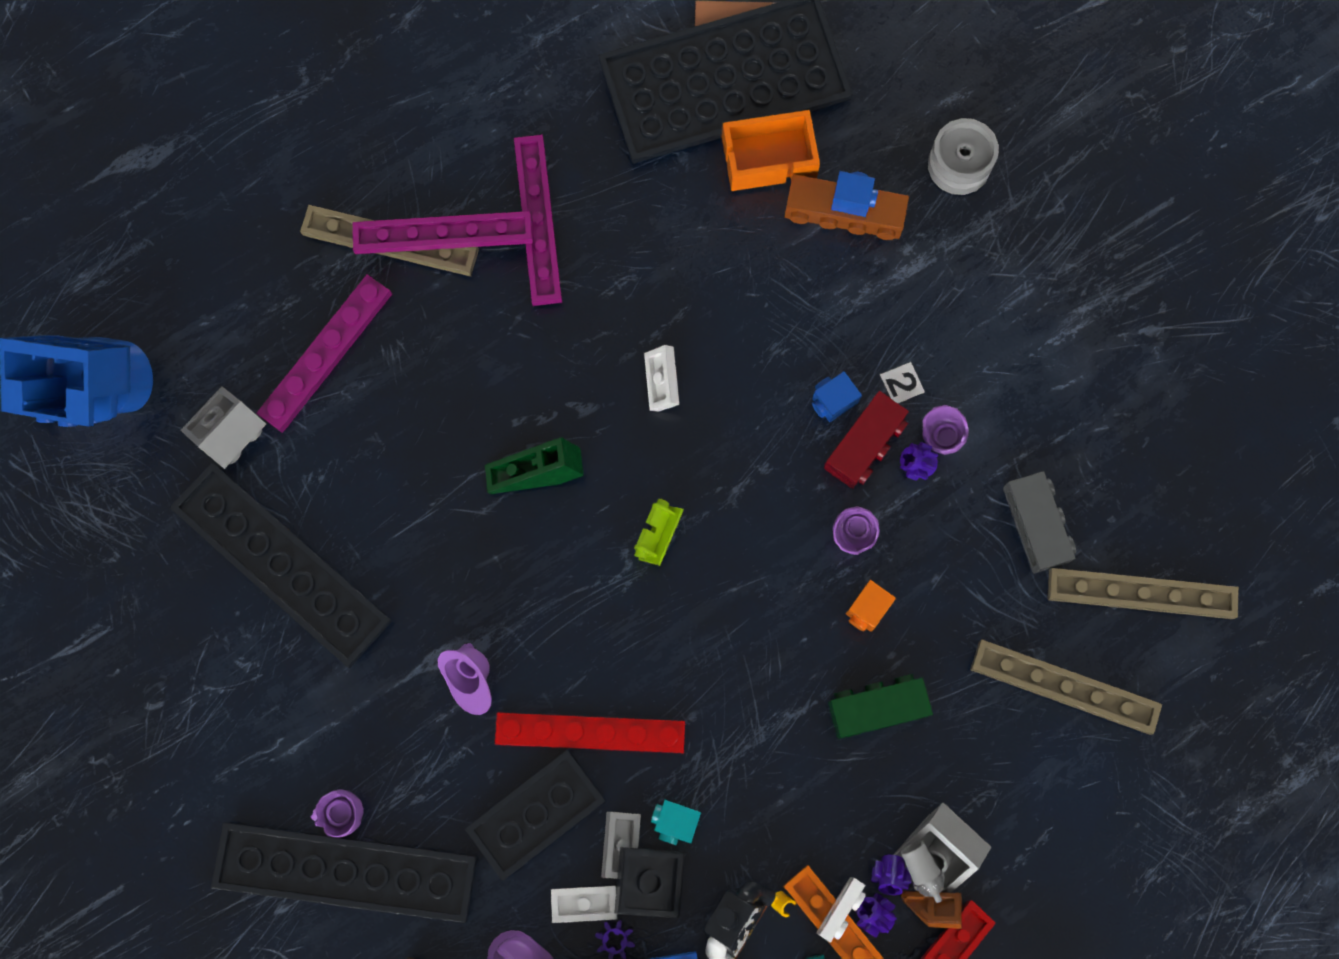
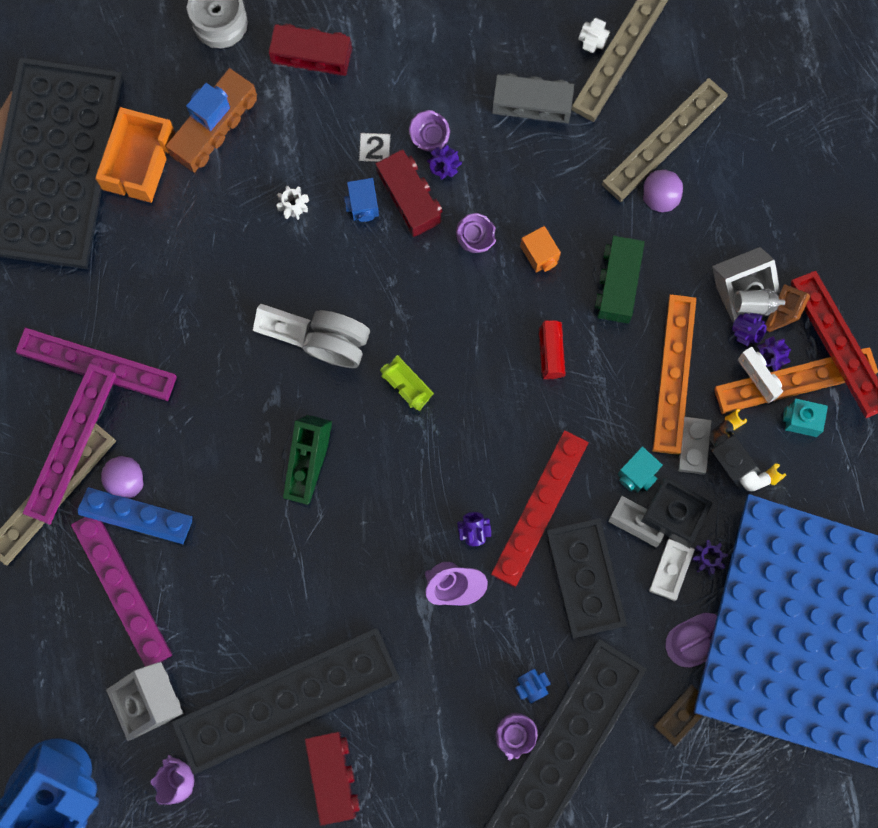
camera: 65 degrees left, 0 degrees up
(154, 492) = (173, 781): none -> medium lavender hair
(220, 644) = (332, 778): none -> dark red brick
(396, 808) = (532, 686): none -> blue gear
(402, 330) = (135, 515): none -> blue plate
(435, 299) = (122, 477): none -> medium lavender hair
(535, 673) = (474, 529): none -> dark purple gear
(670, 438) = (336, 339): none -> light grey wheel
(733, 870) = (694, 446): none -> light grey plate
(766, 669) = (551, 350): none -> red brick
(796, 320) = (289, 195): none -> white gear
(802, 813) = (674, 374): none -> orange plate
(975, 267) = (310, 49): none -> dark red brick
(1006, 710) = (662, 190): none -> medium lavender hair
(1146, 555) = (594, 35): none -> white gear

